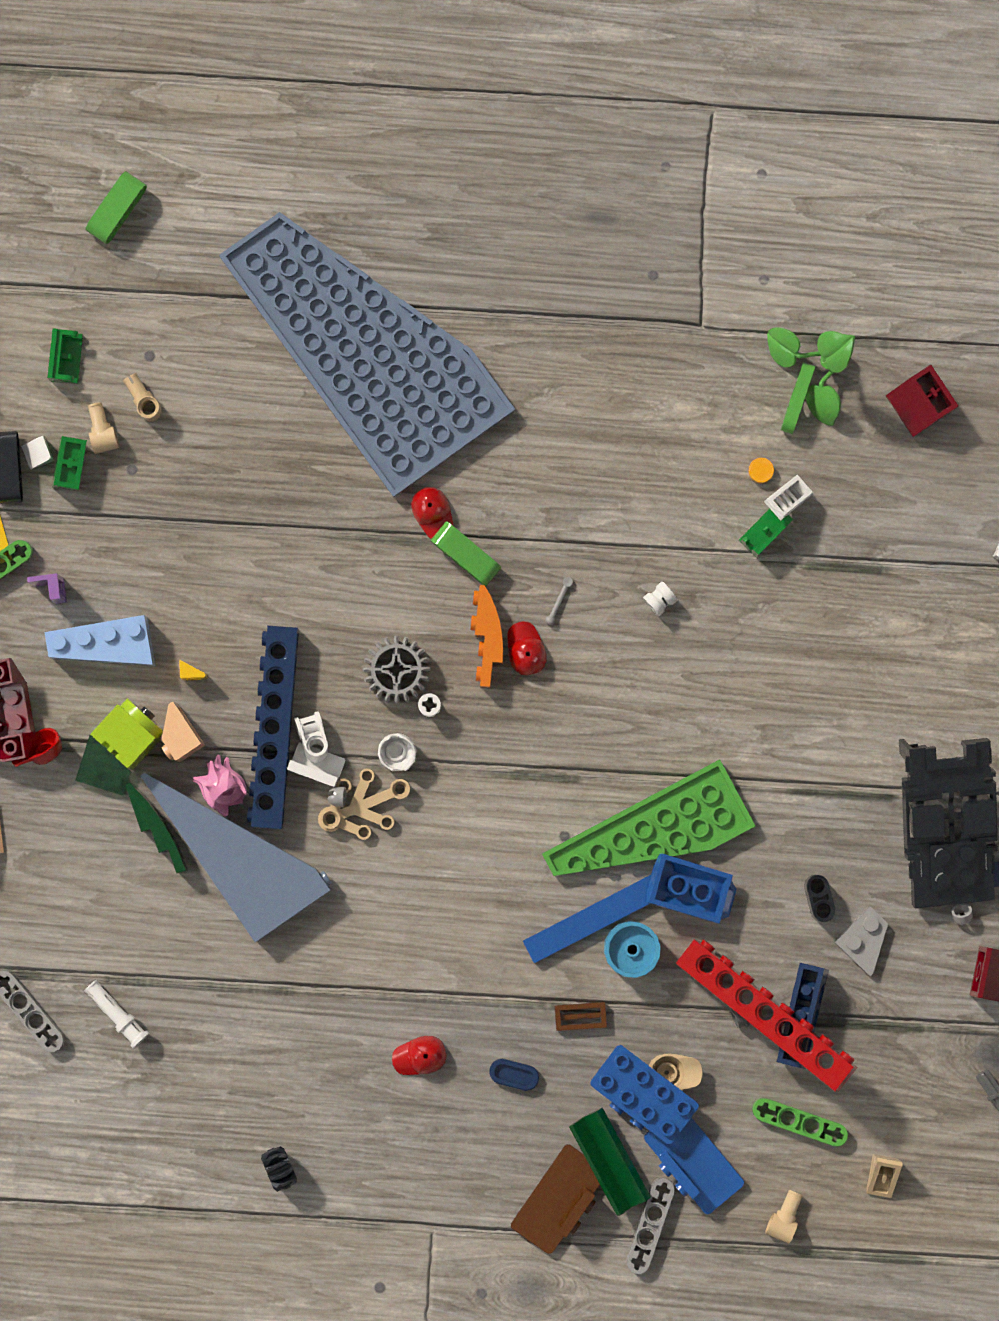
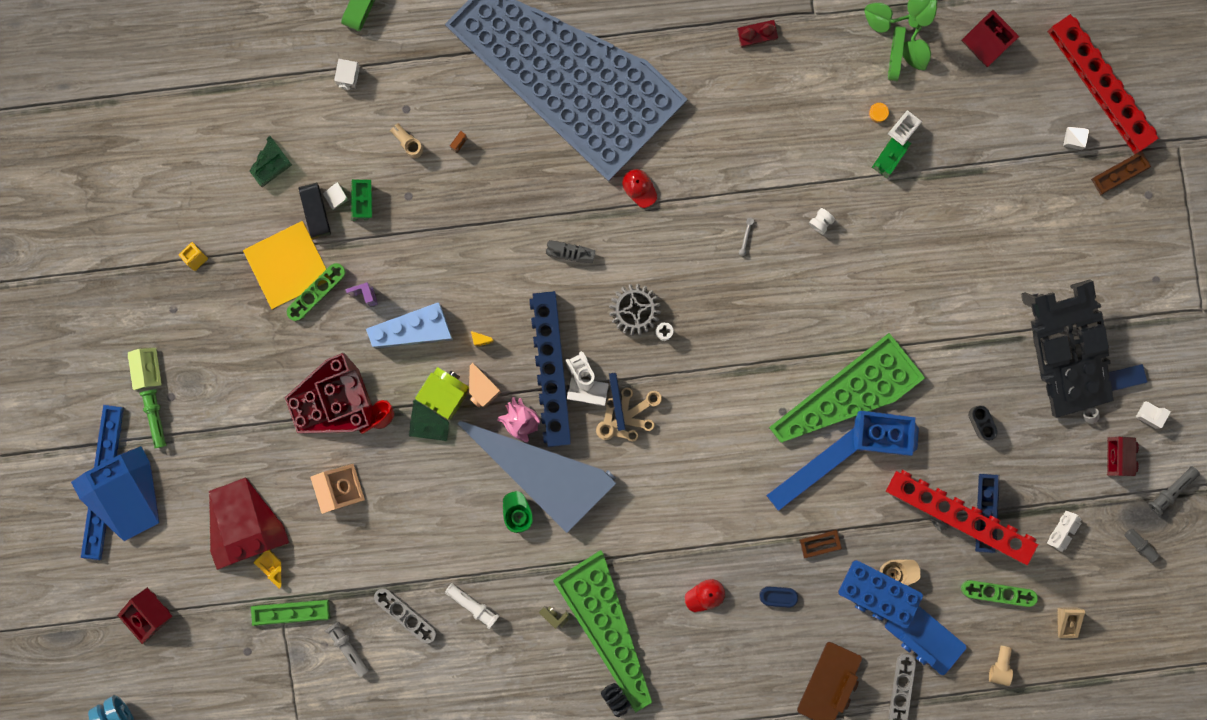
camera: 10 degrees left, 0 degrees up
(65, 356) = (343, 120): green hinge -> none
(80, 297) = (346, 74): none -> white brick
(103, 436) = (381, 173): tan pin -> none
(150, 819) = (471, 455): dark green slope -> none
(195, 895) = (513, 506): none -> green cap
(209, 411) = (458, 142): none -> dark orange tile
(214, 1045) = (550, 615): none -> olive bracket
(276, 1044) = (596, 606): none -> bright green wing
(327, 580) = (572, 252): none -> dark grey hinge
(337, 796) = (608, 412): light grey hinge -> none
(351, 784) = (617, 401): none -> dark blue tile
(397, 752) = (647, 371): white hair -> none
(466, 553) = (670, 213): bright green beam -> none
(487, 625) = (697, 264): orange slope -> none
(523, 639) = (723, 271): red cap -> none
(609, 1161) = (863, 648): dark green panel -> none
(622, 339) = (757, 33): none -> dark red tile
(632, 964) = (839, 483): dark azure wheel -> none
(864, 939) = (1021, 448): light grey wing -> none
(891, 1064) = (1068, 523): none -> white hinge

